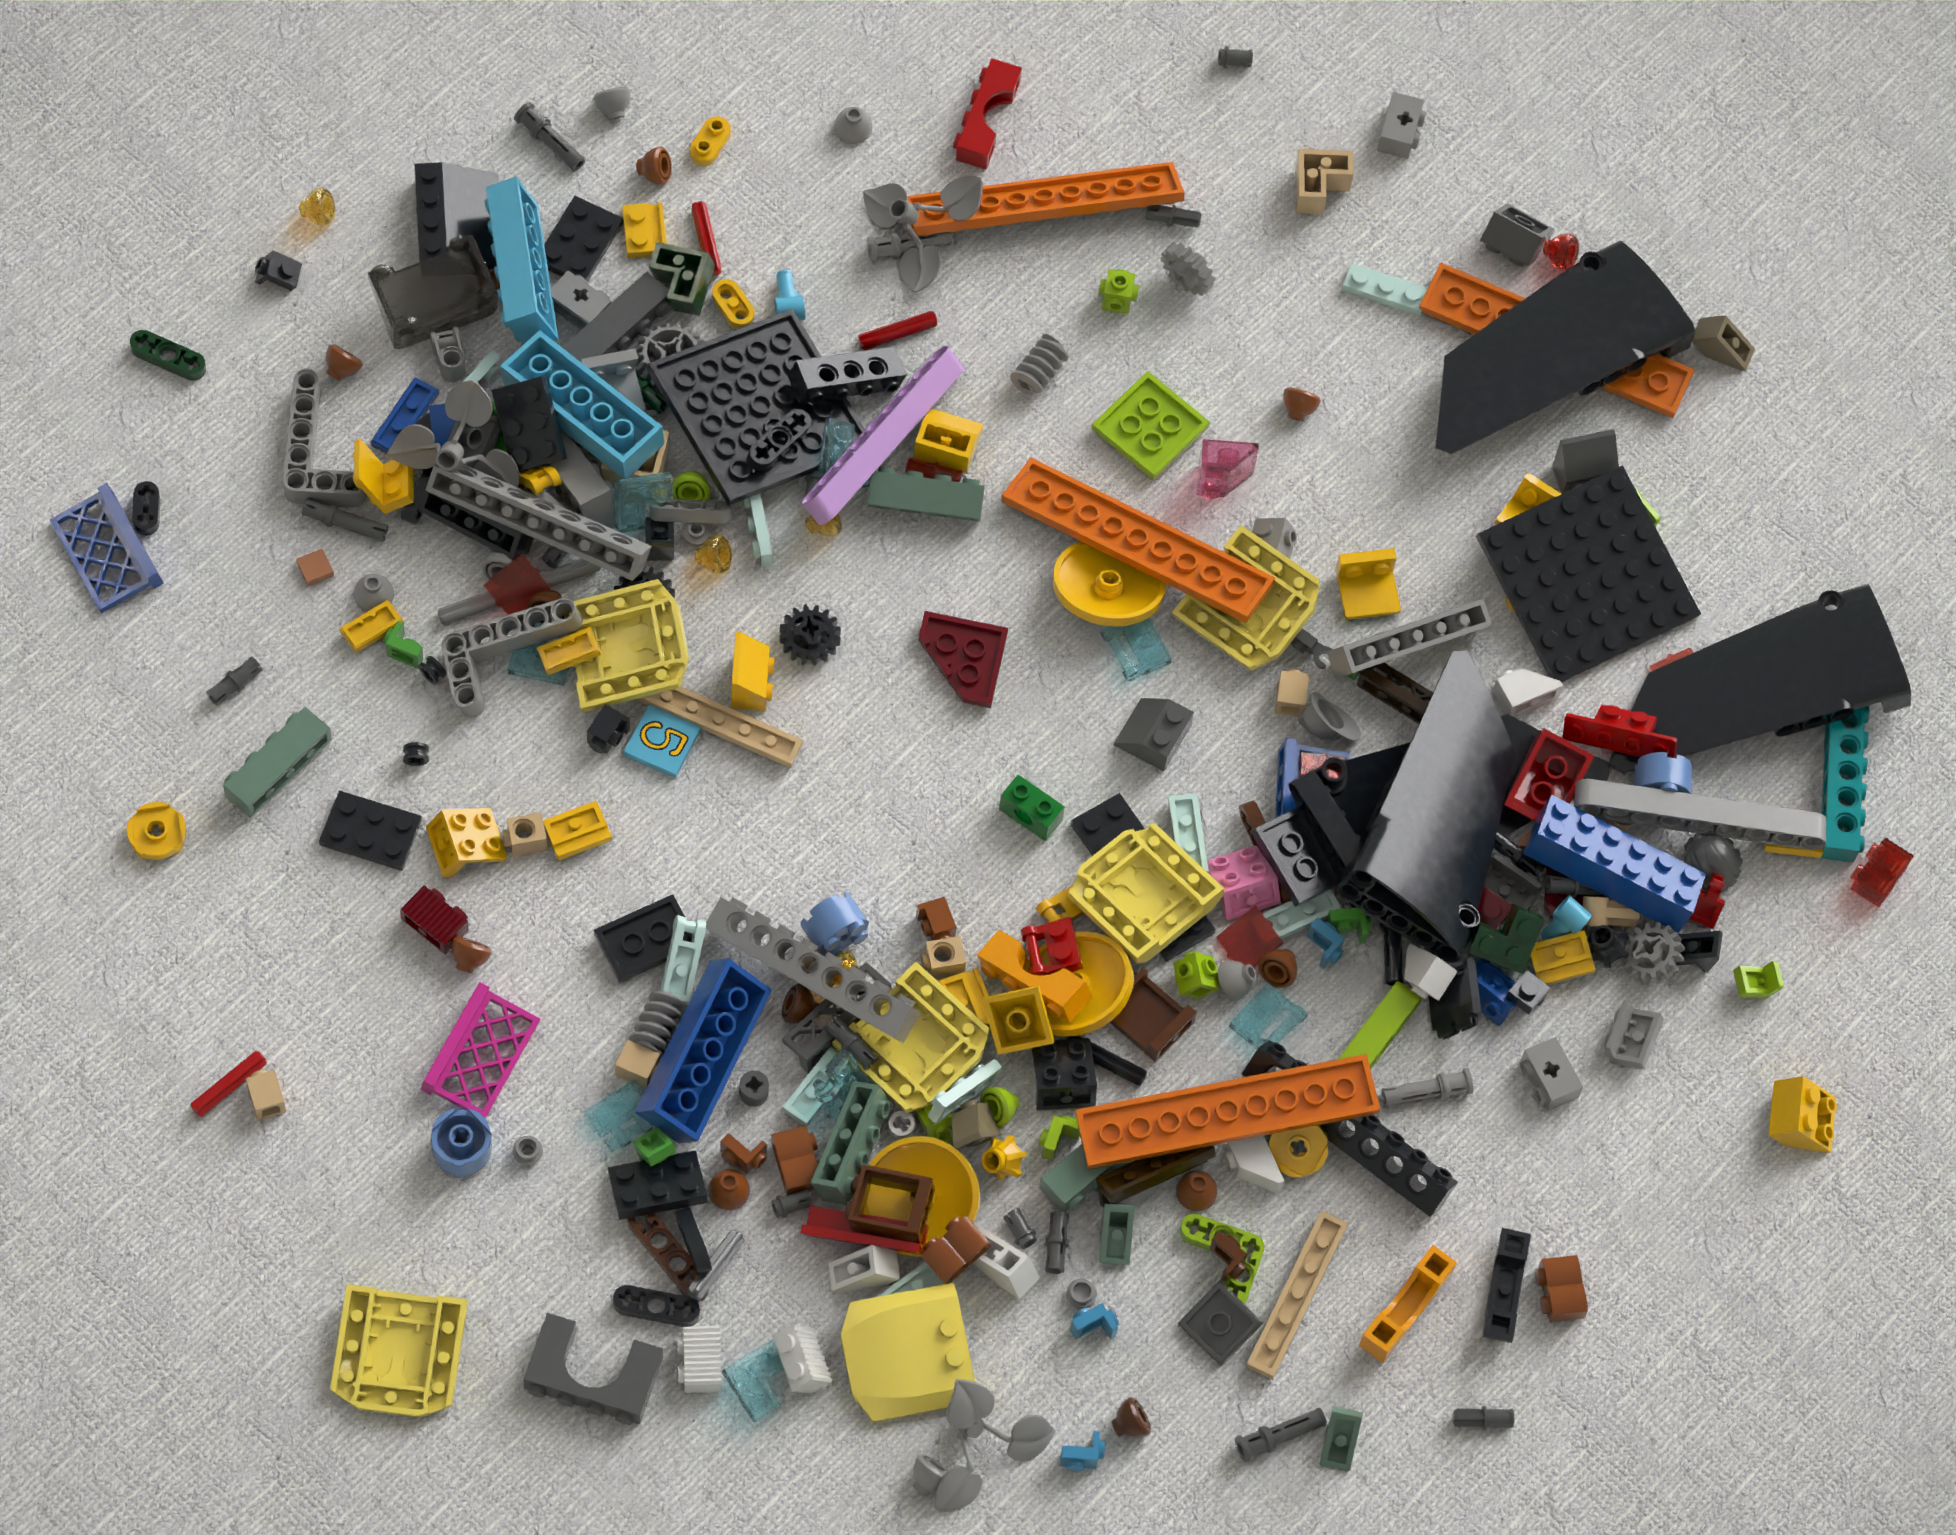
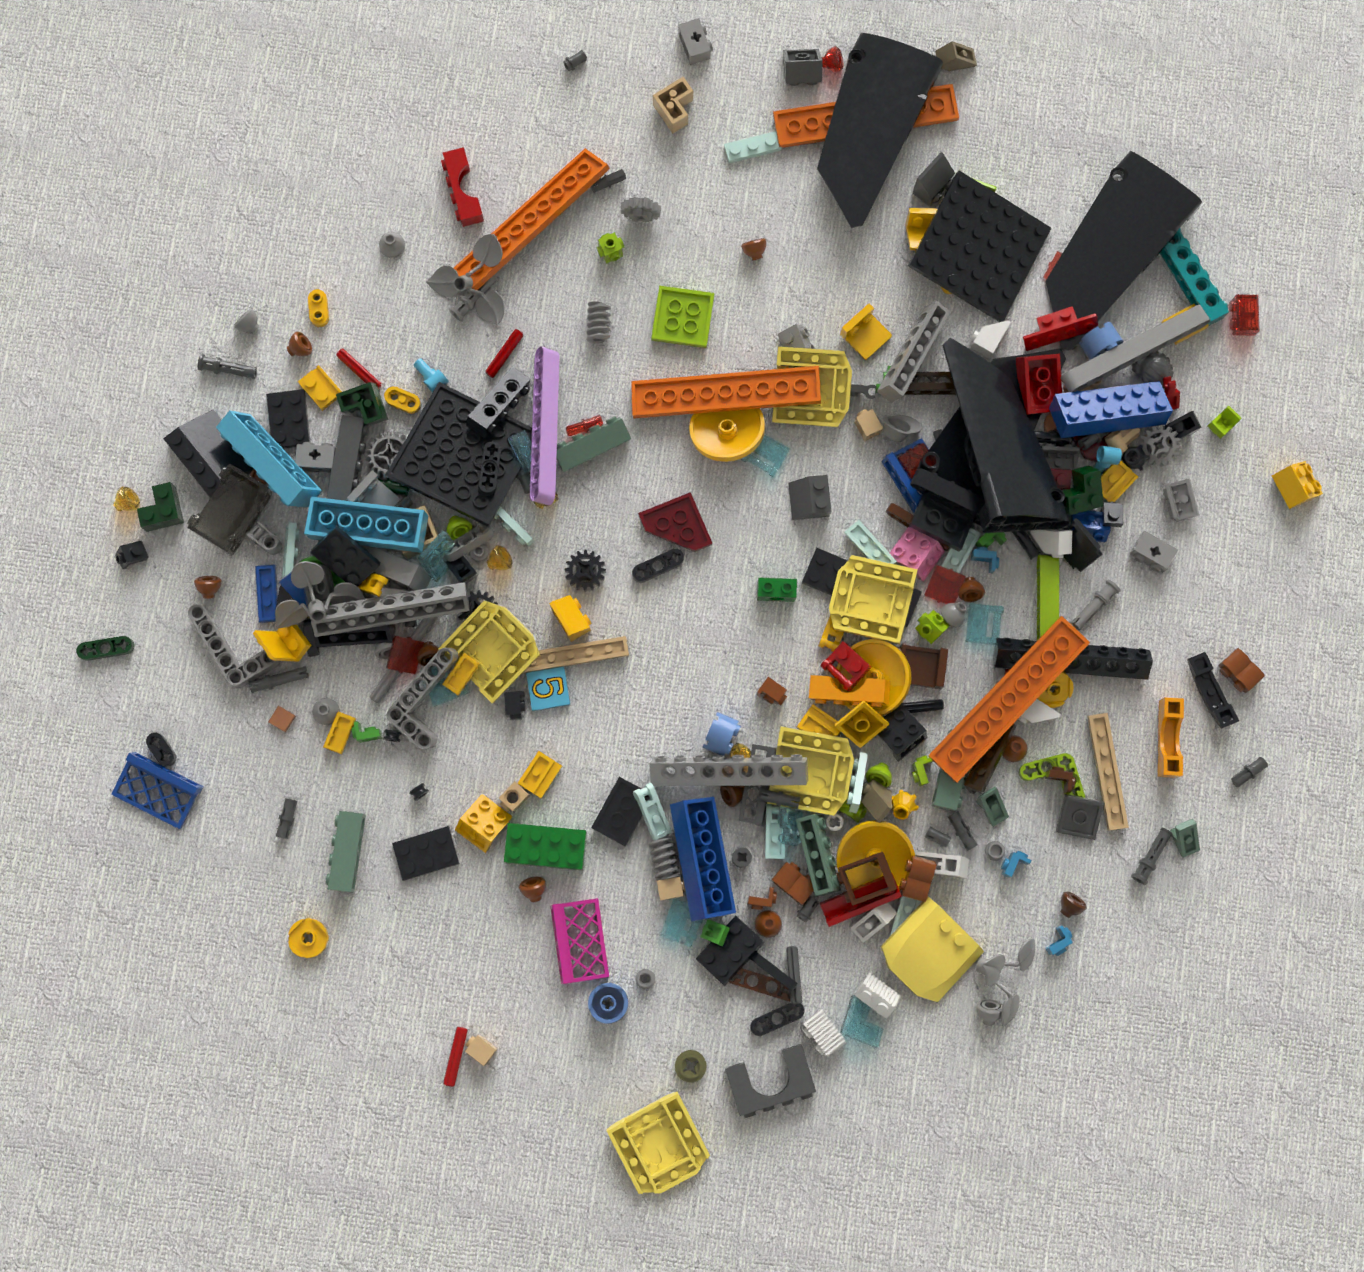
camera: 30 degrees left, 15 degrees up
(353, 248) = (165, 511): none -> dark green brick
(434, 918) = (499, 882): dark red brick -> none
(496, 1279) = (688, 1075): none -> olive gear
(521, 915) = (545, 846): none -> green brick
(911, 698) = (643, 567): none -> black beam
(947, 440) = (579, 401): yellow slope -> none
(950, 947) = (793, 702): tan brick -> none
(1224, 466) = (740, 316): clear pink slope -> none

